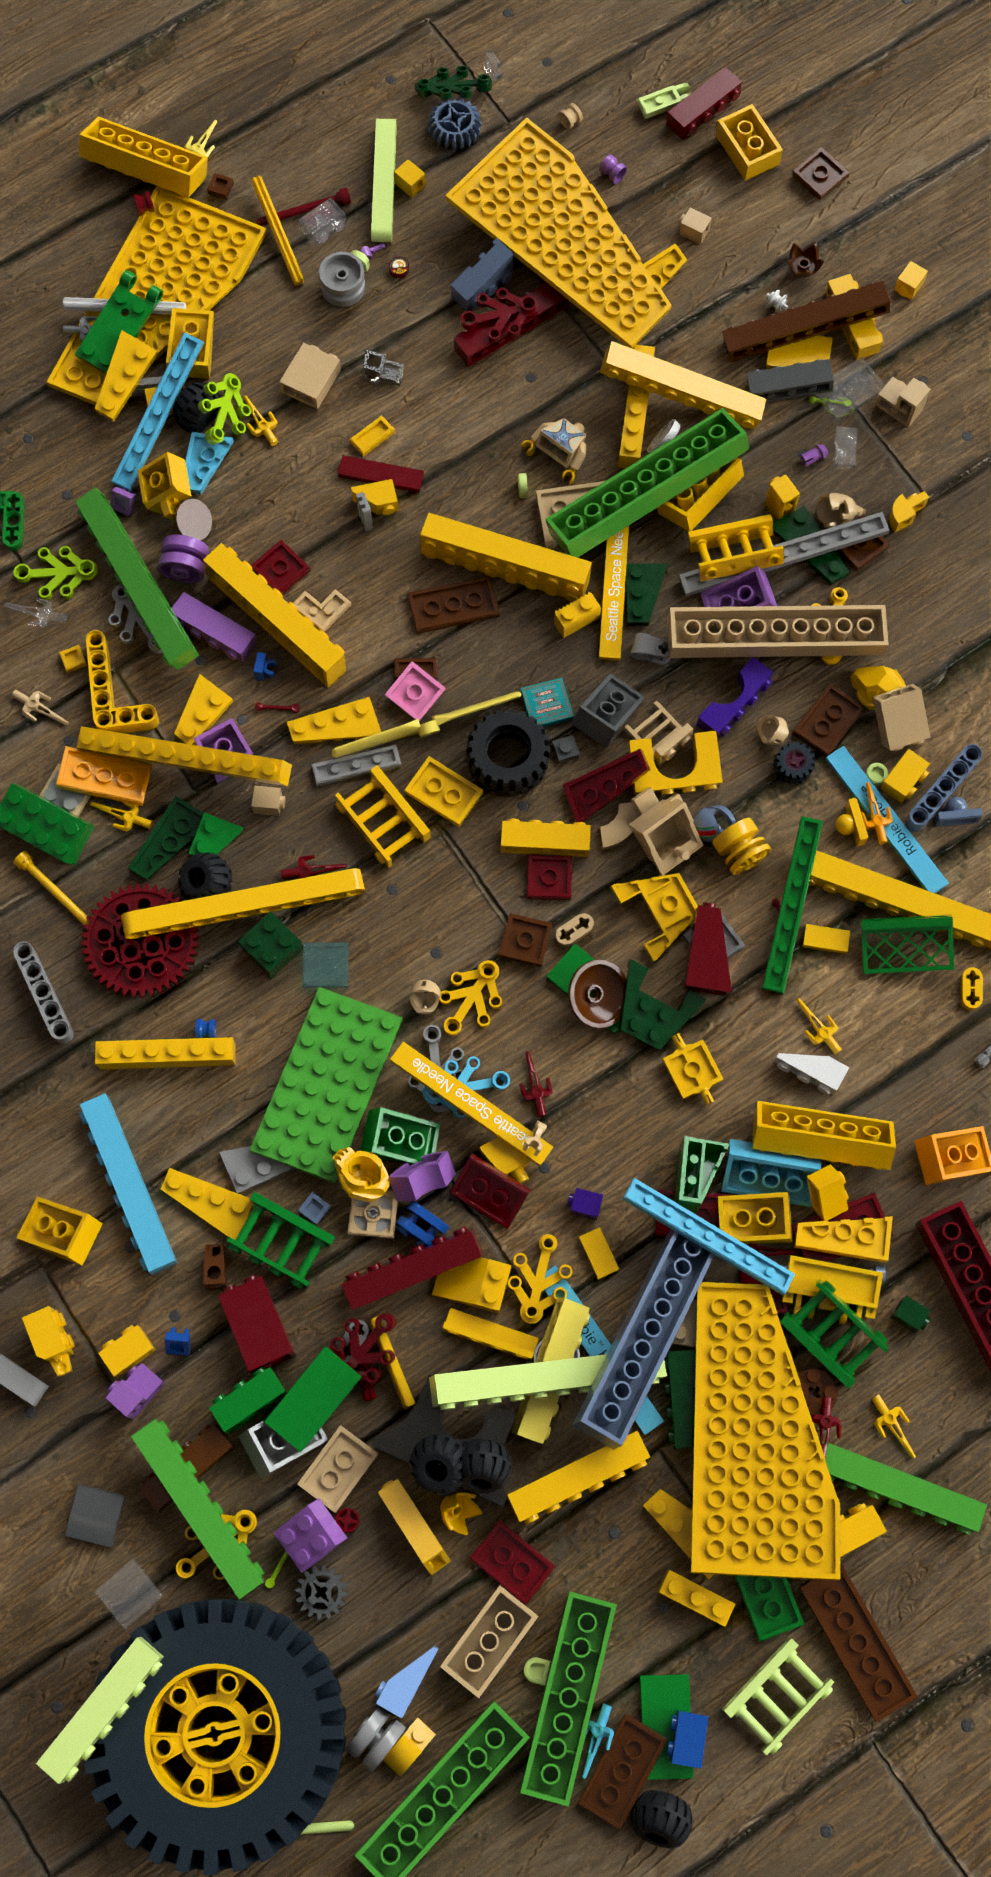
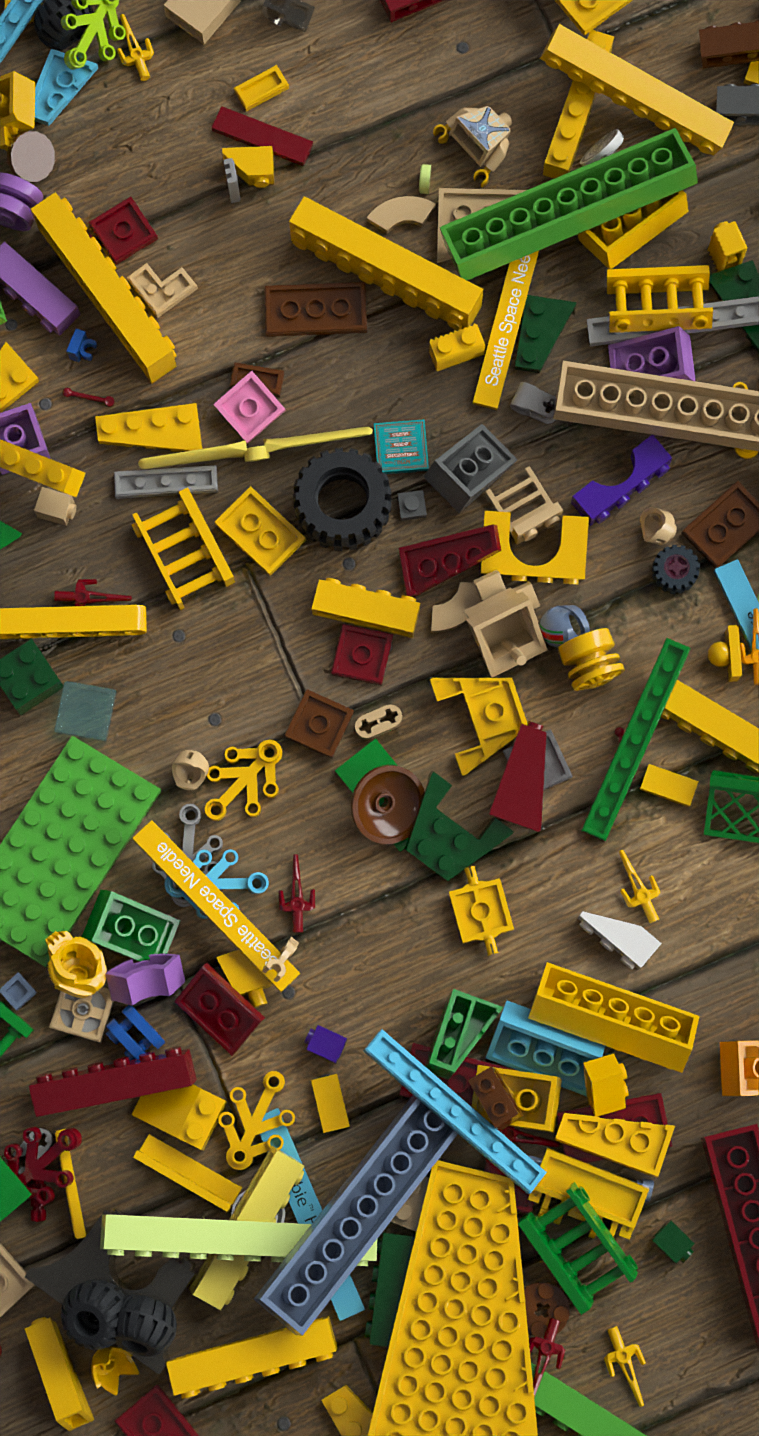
camera: 15 degrees right, 5 degrees up
(508, 514) = (401, 211): none -> tan tile
(740, 1219) = (495, 1098): none -> reddish brown brick

